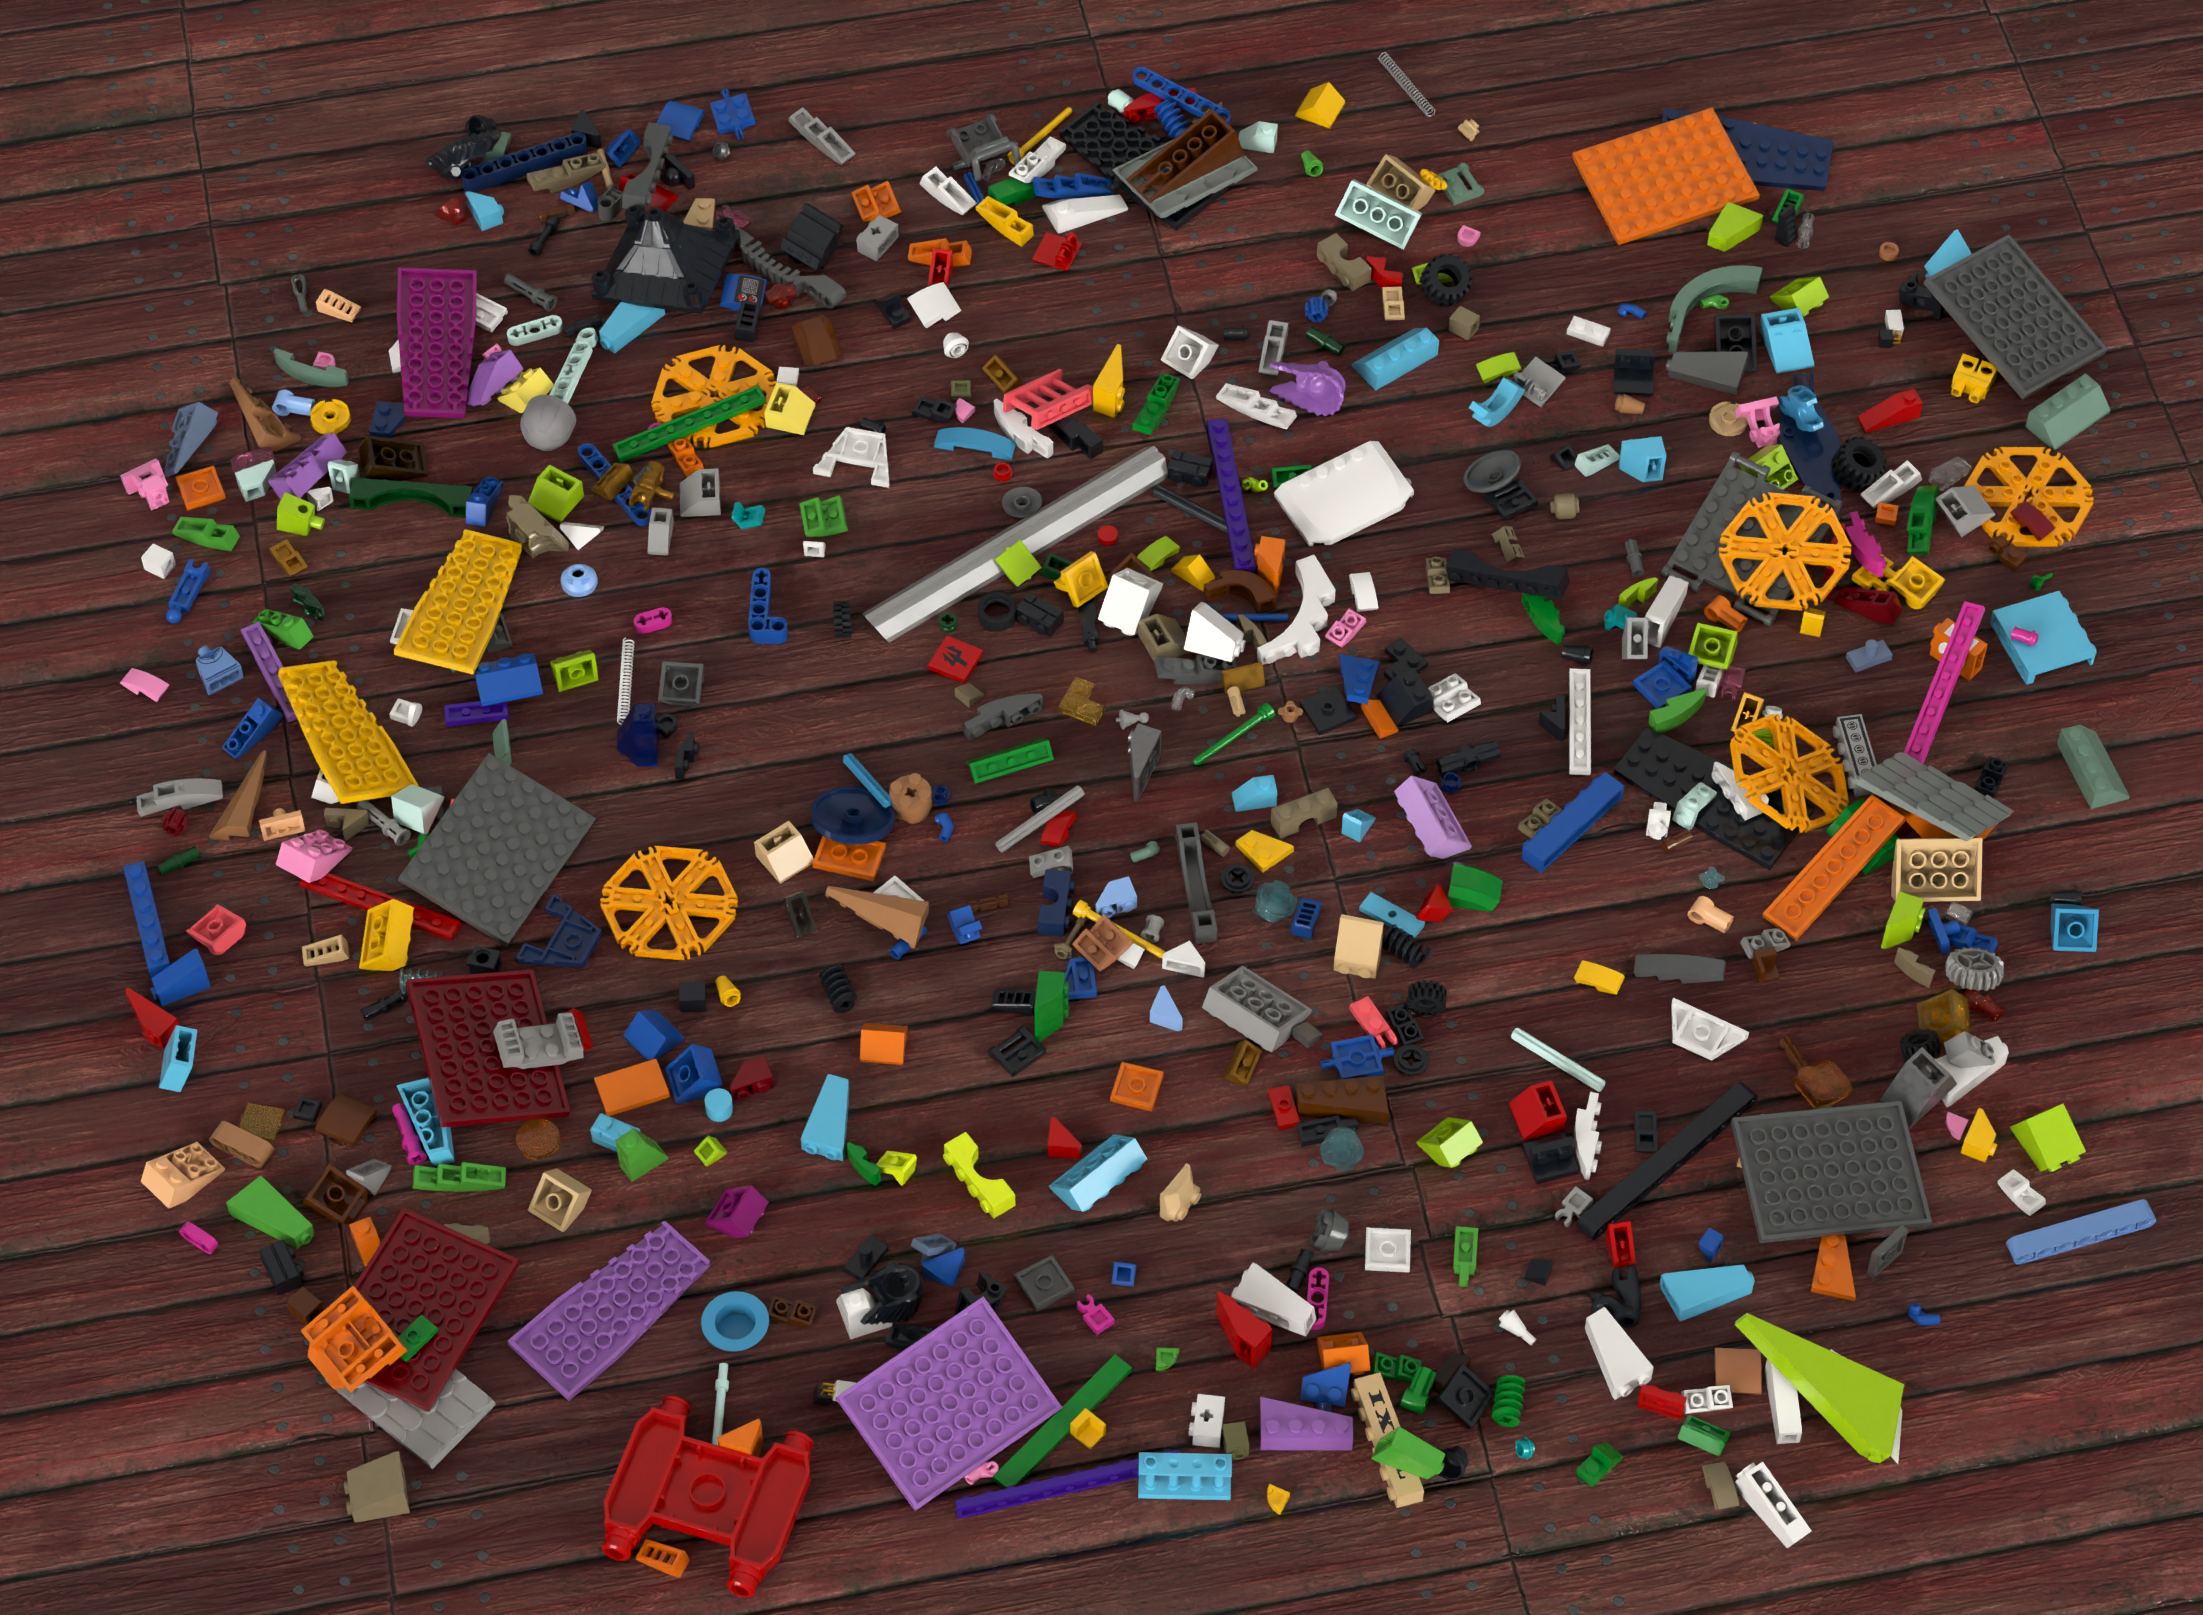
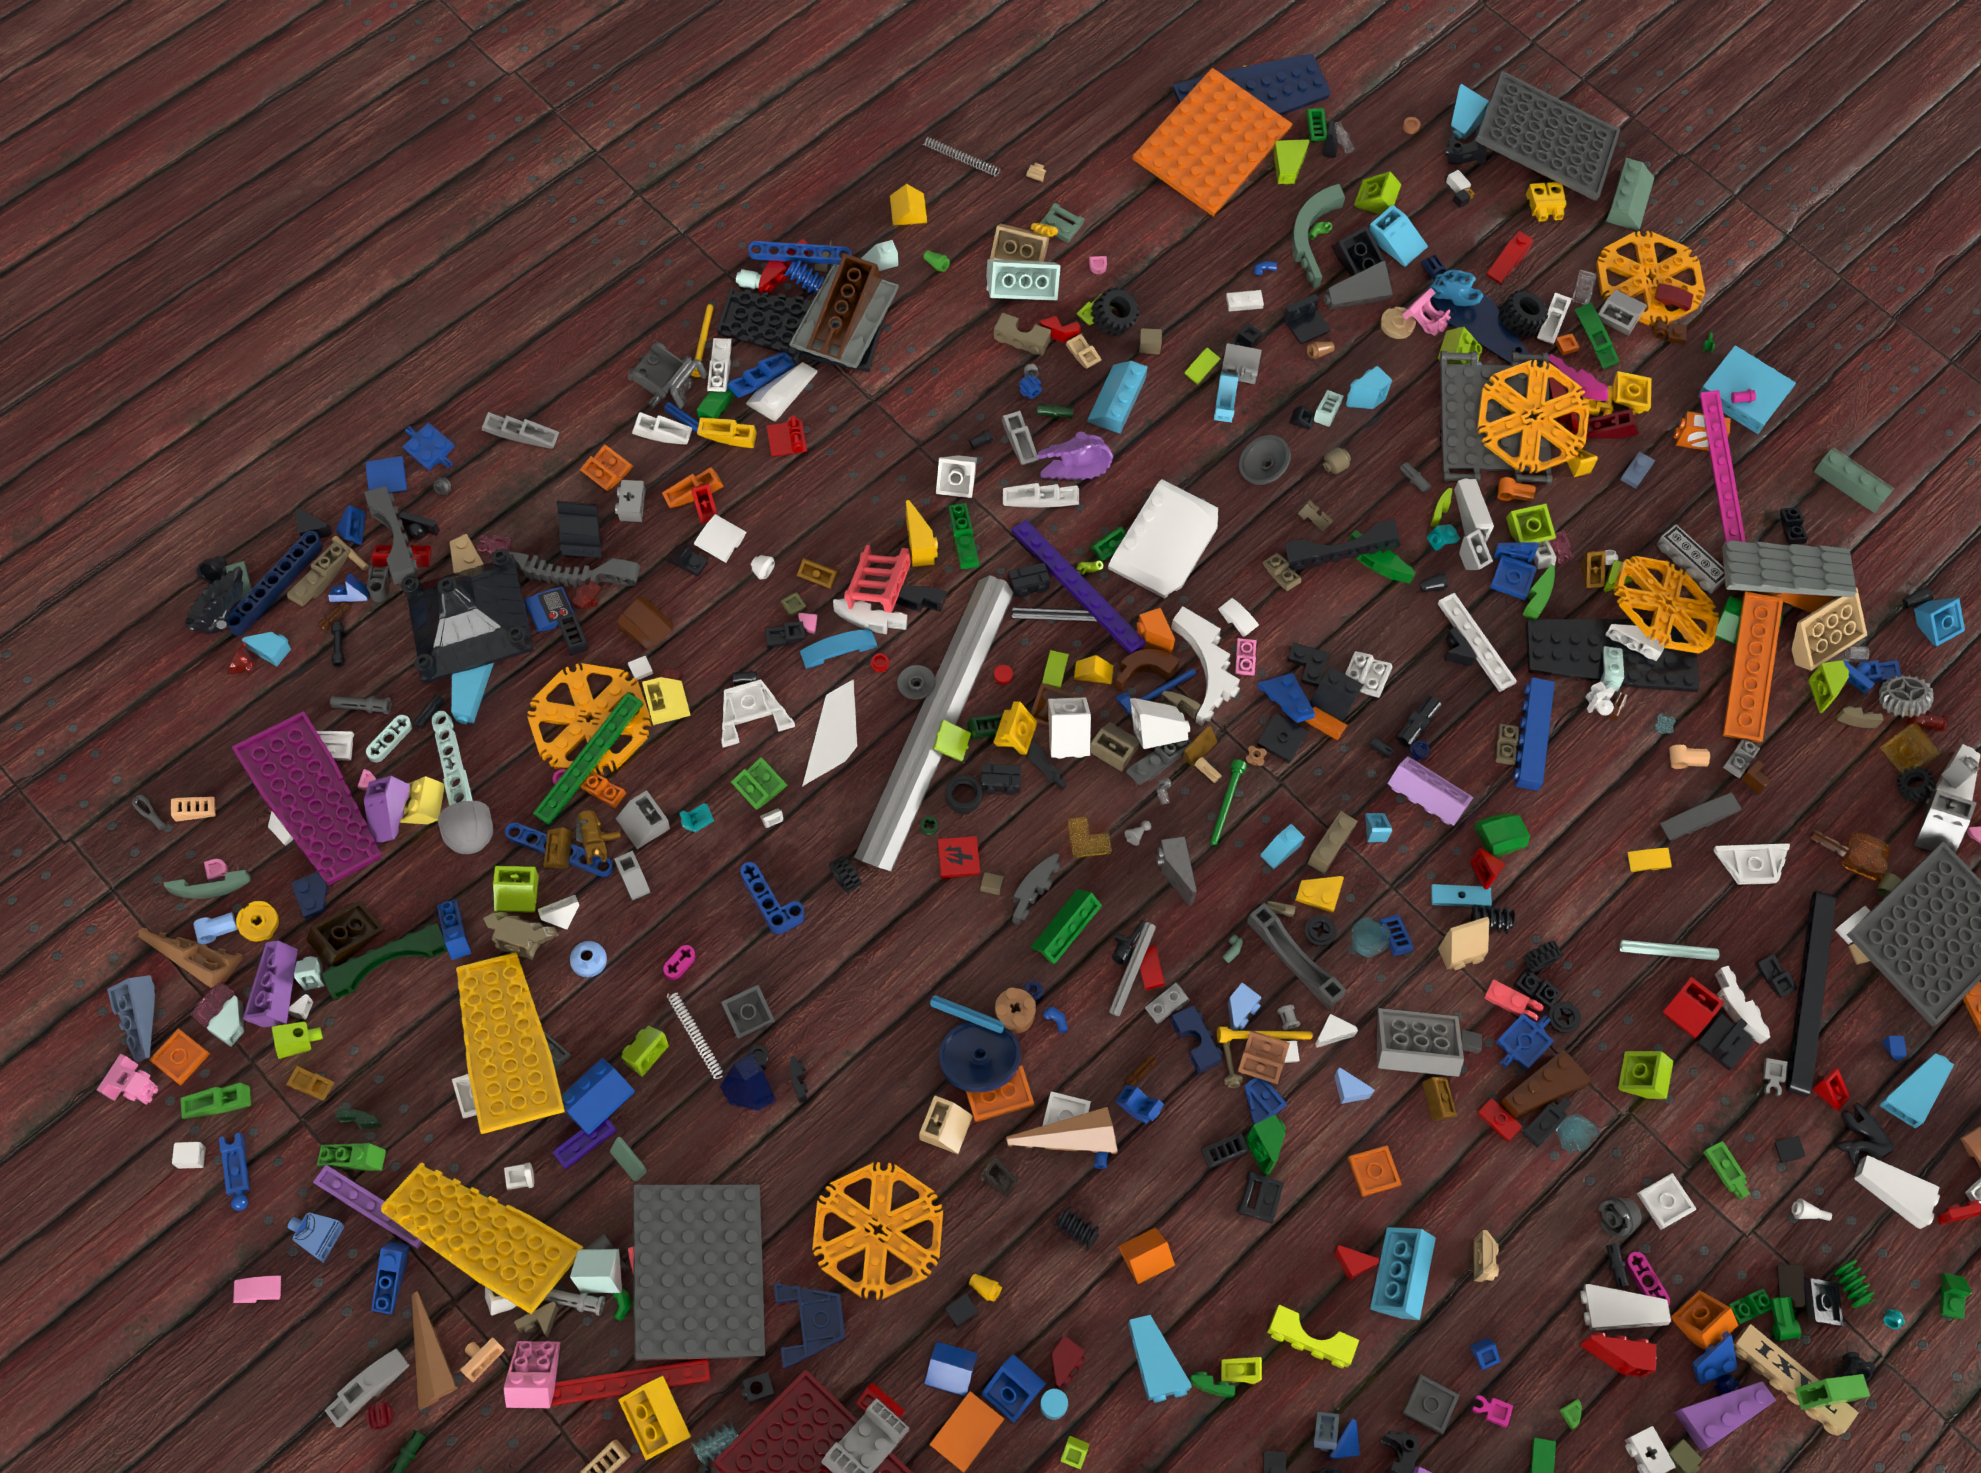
camera: 35 degrees left, 10 degrees up
(921, 511) = (835, 733): none -> white sticker
(1513, 503) = (1296, 478): black plate -> none

